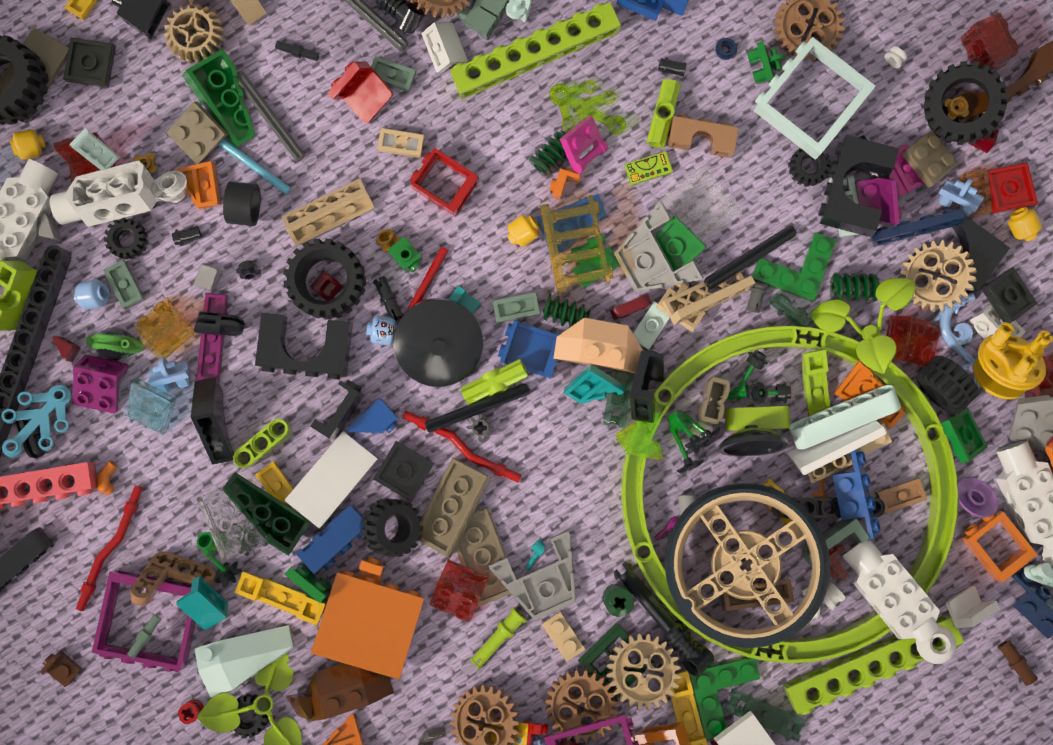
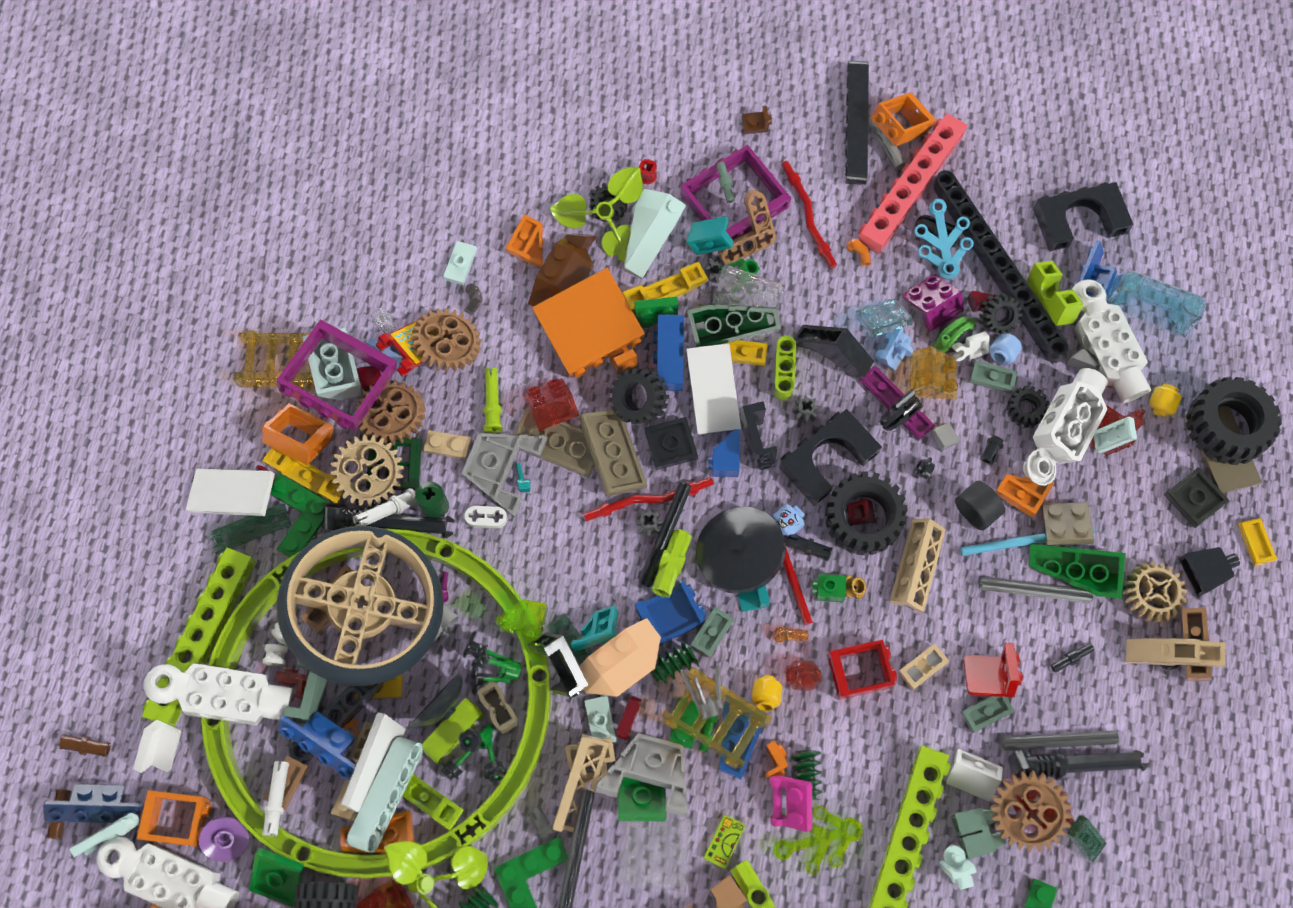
camera: 135 degrees right, 15 degrees down
(64, 312) = (993, 305): none -> black tyre
(111, 318) = (974, 347): none -> white plate
(149, 159) = (1076, 474): pearl gold plate -> none
(285, 402) = (807, 414): none -> dark grey gear
(466, 253) = (785, 633): none -> clear orange arm
(486, 217) = (803, 675): none -> clear red head
(576, 255) = (706, 706): none -> flat silver plant
(592, 547) = (486, 511): none -> white beam
(647, 624) = (395, 506): none -> white pin
(783, 305) = (516, 838): clear green plate -> none
(921, 487) = (274, 807): none -> white pin

